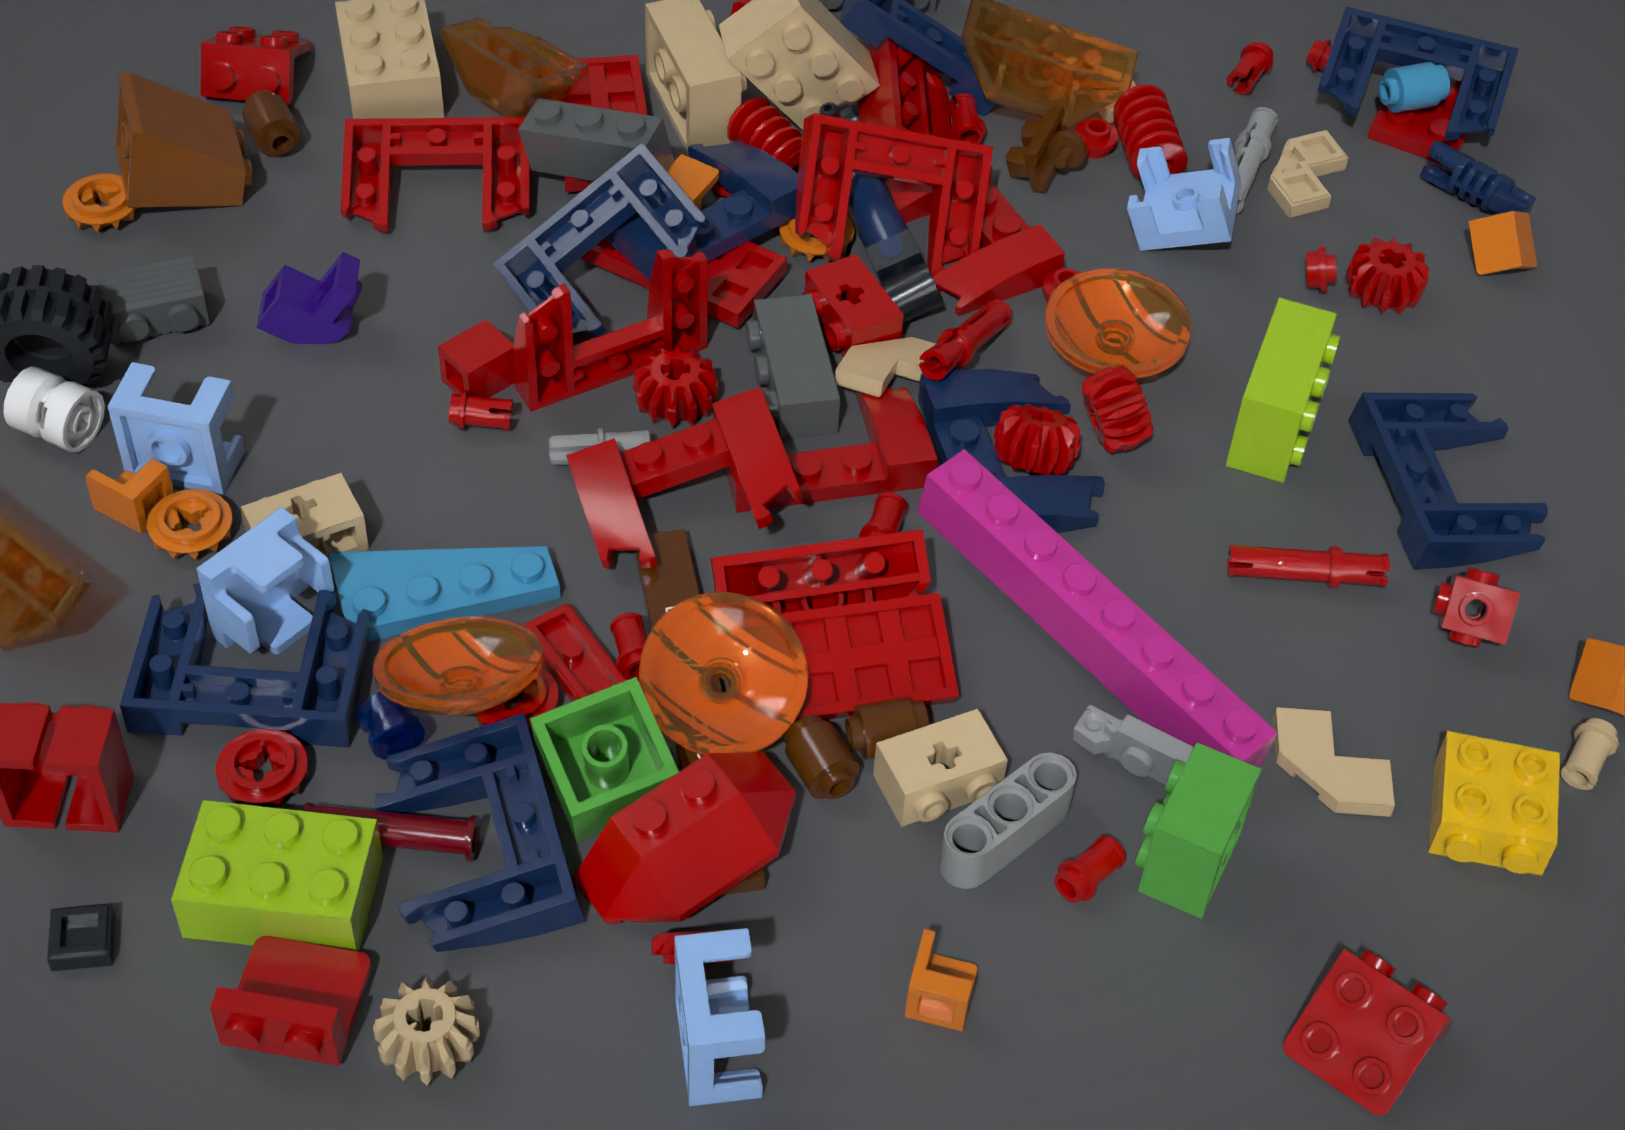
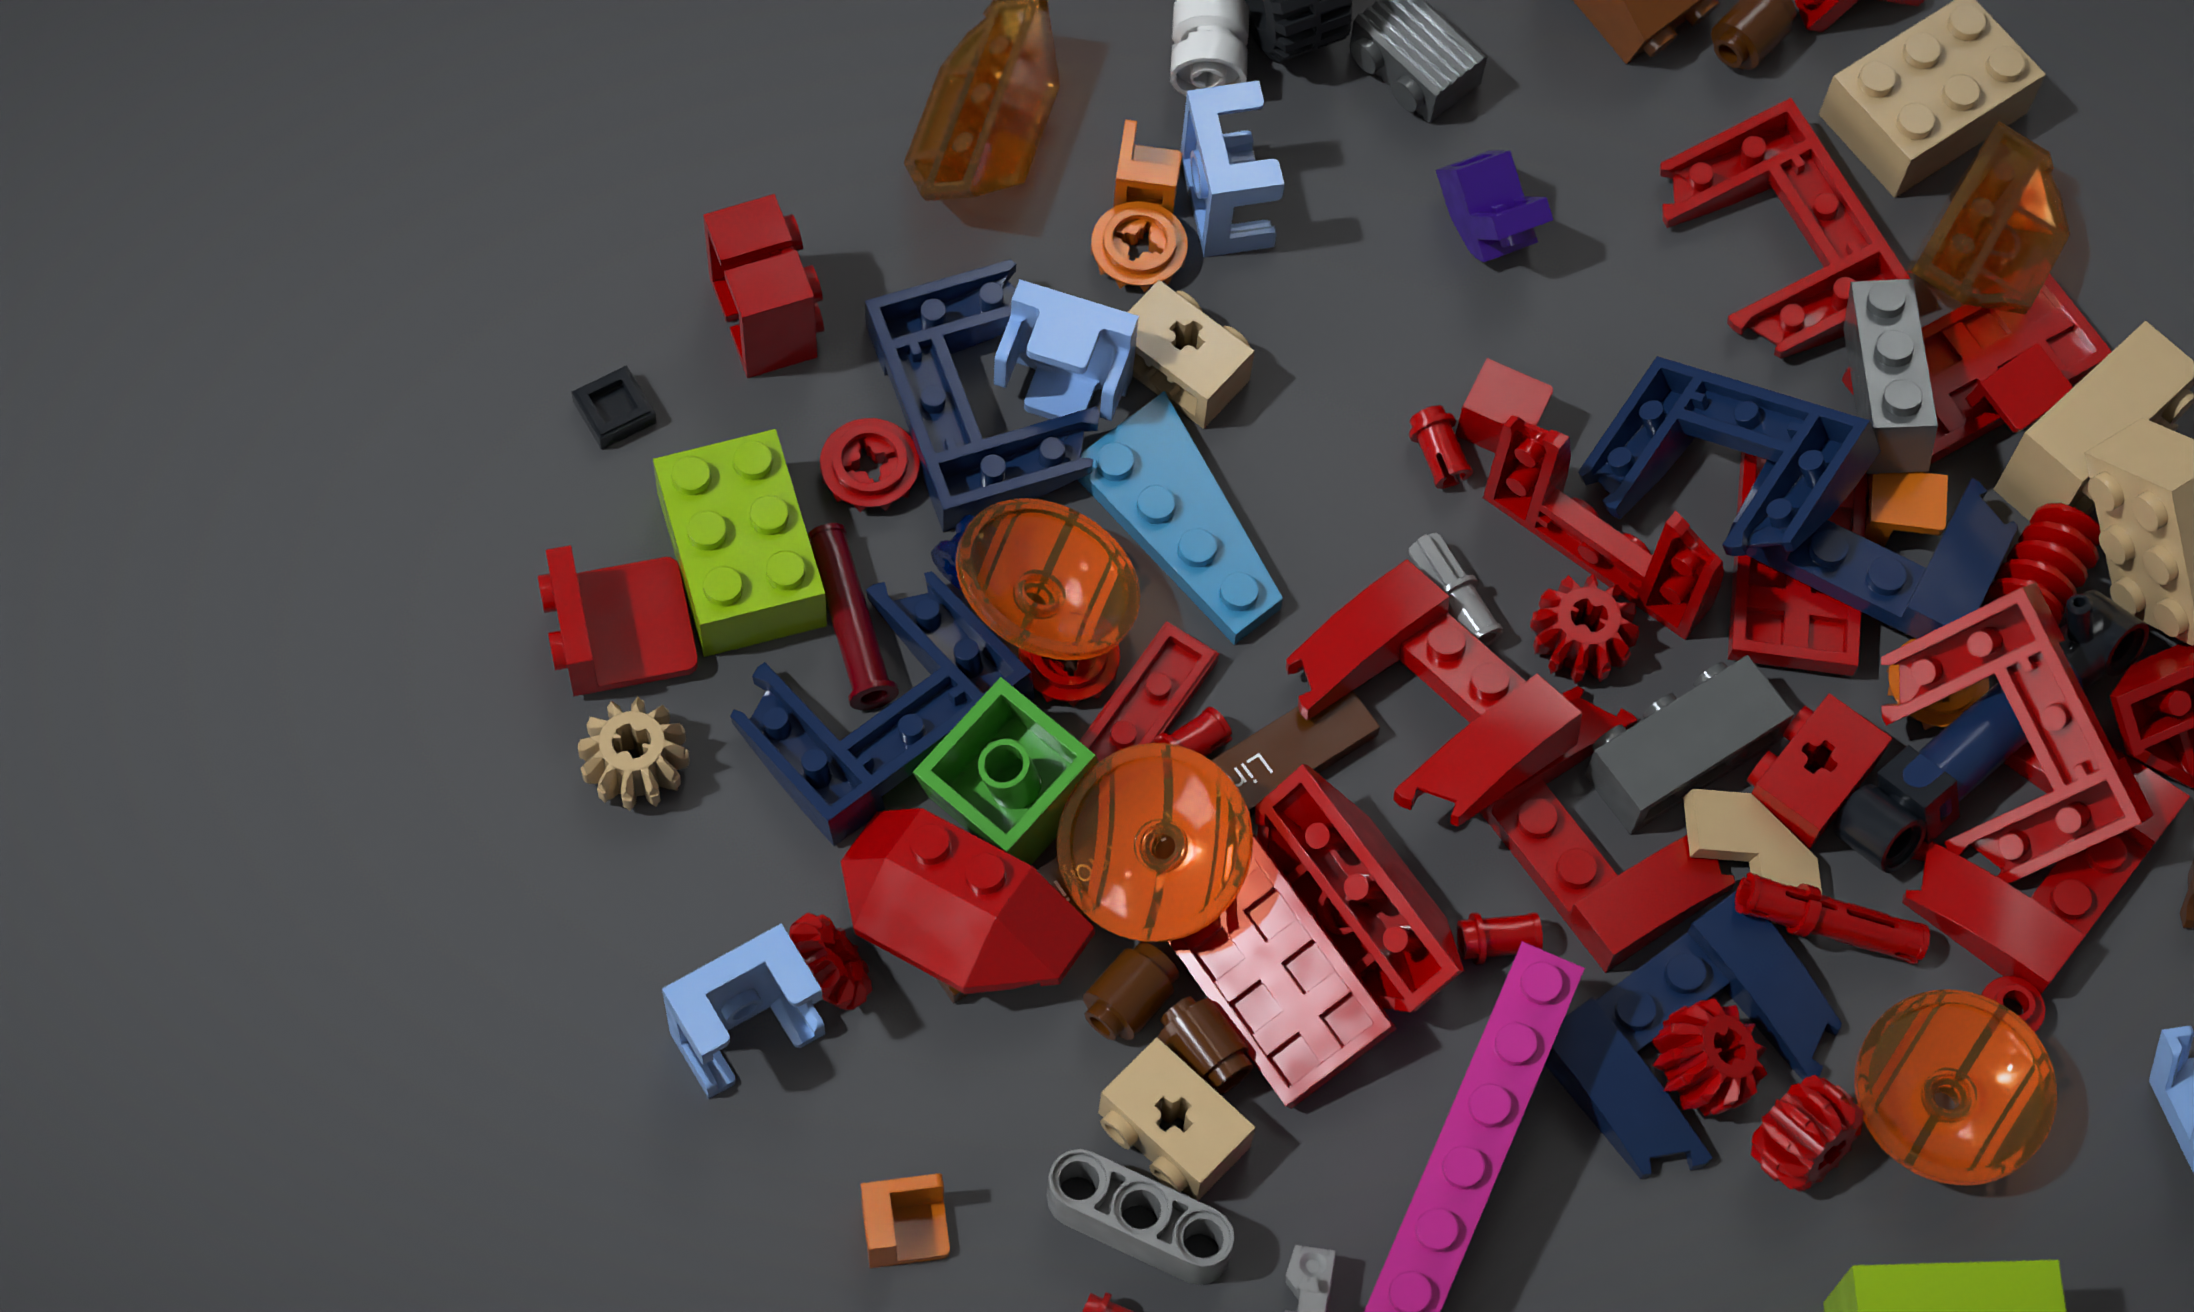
camera: 65 degrees right, 15 degrees up
(645, 86) = (2023, 388): none -> red panel

